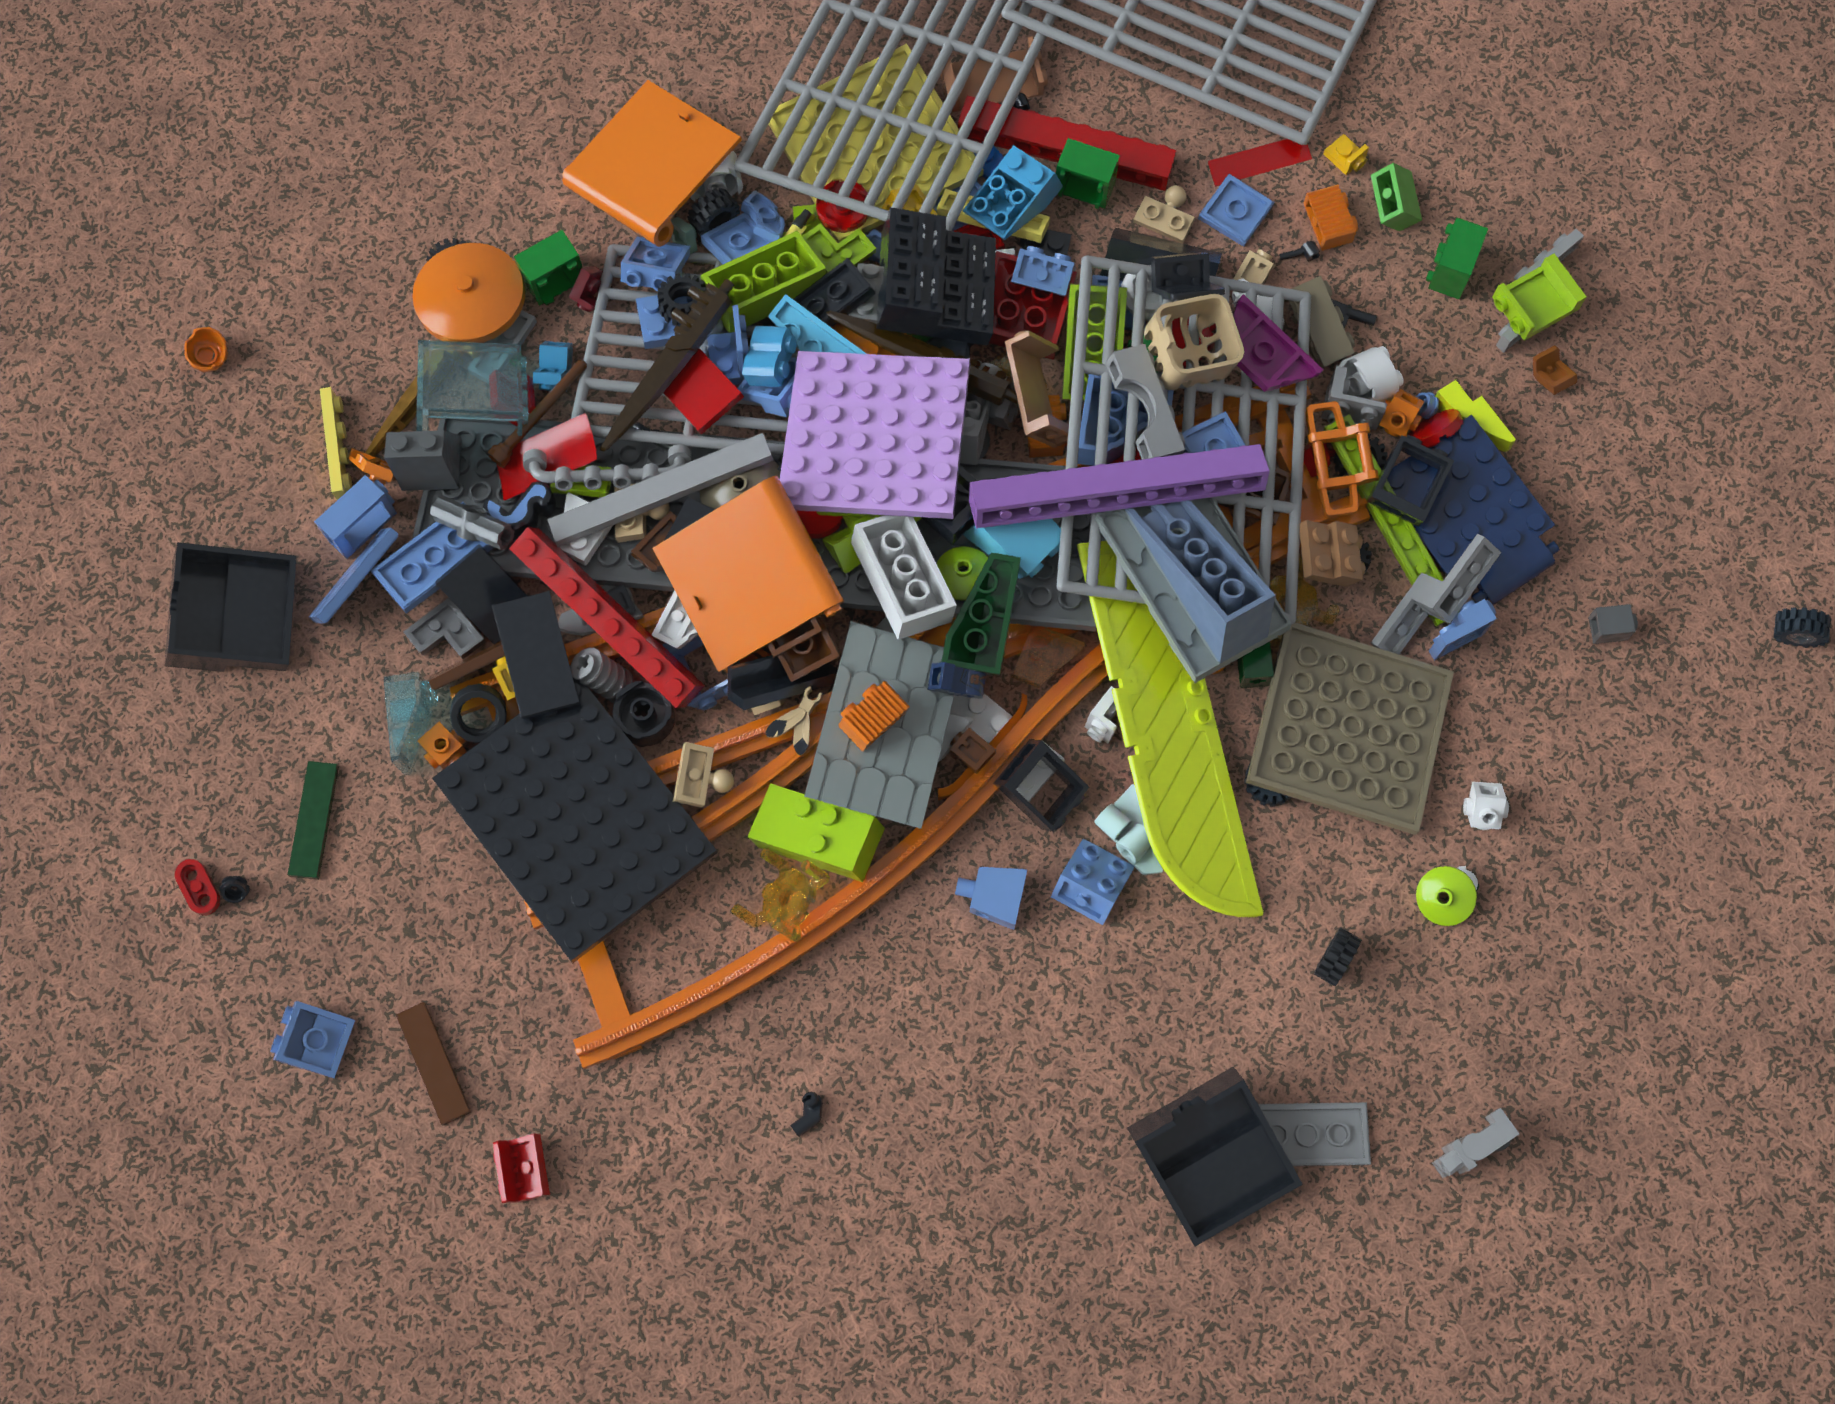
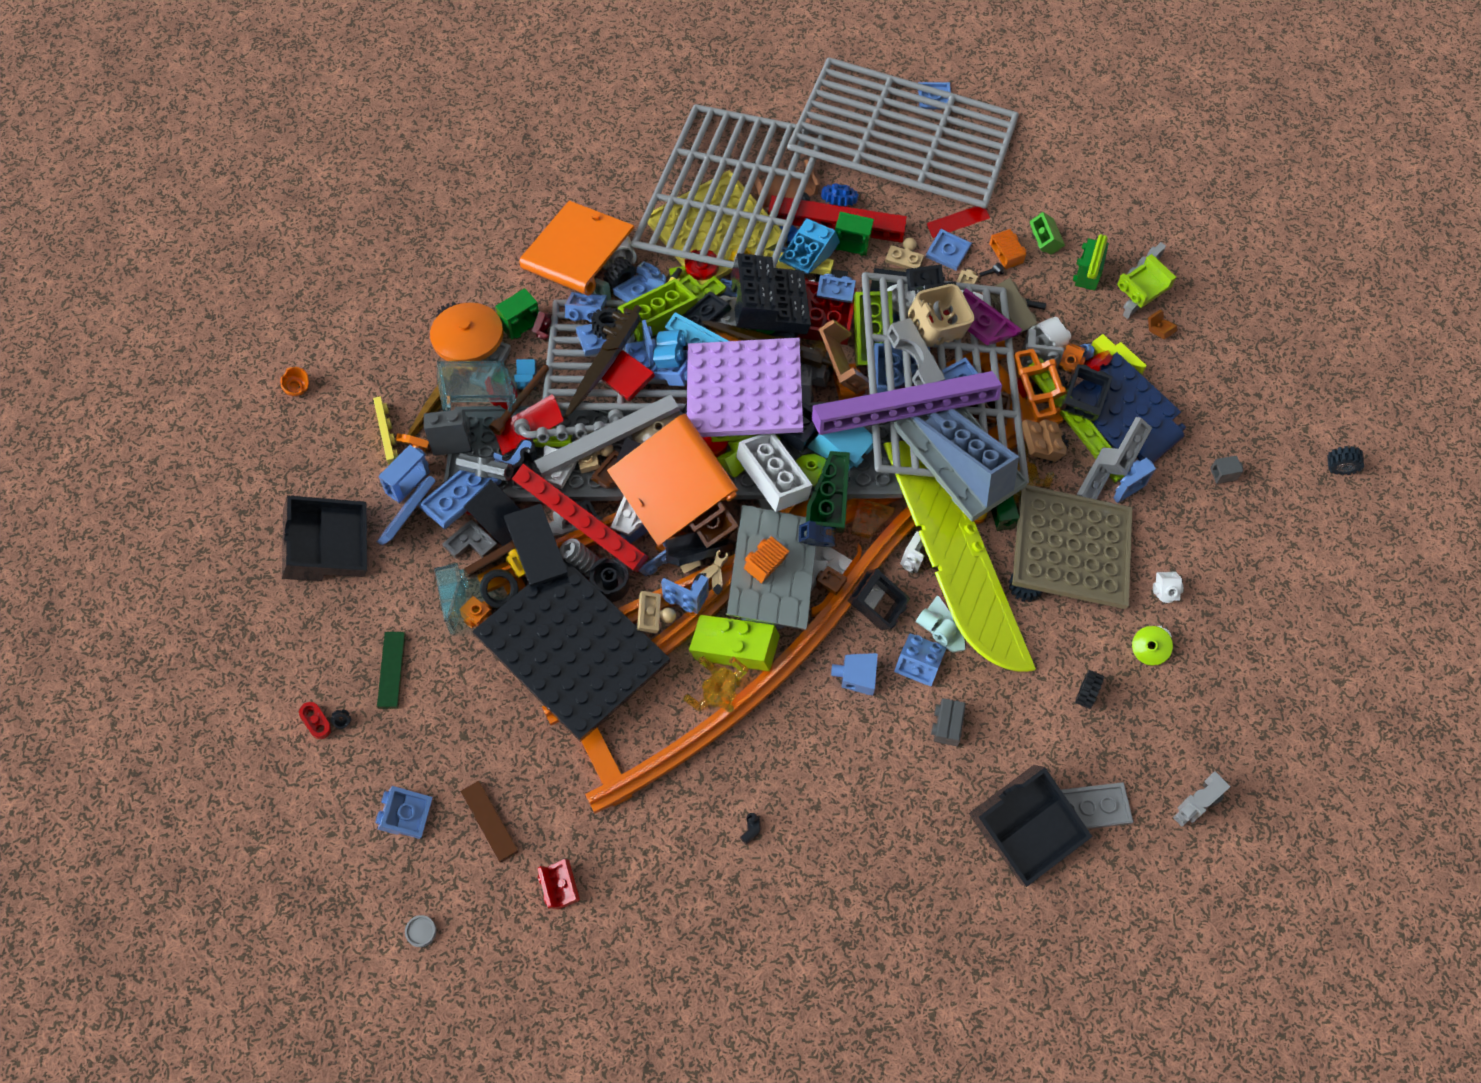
camera: 10 degrees left, 10 degrees down
(322, 1213) = (420, 931): none -> light grey piece
(769, 755) = (691, 599): none -> medium blue bracket
(1075, 102) = (839, 195): none -> blue gear
(1120, 984) = (949, 722): none -> dark grey brick
(1346, 154) = (1011, 213): yellow bracket -> none
(1464, 252) = (1097, 256): none -> lime axle

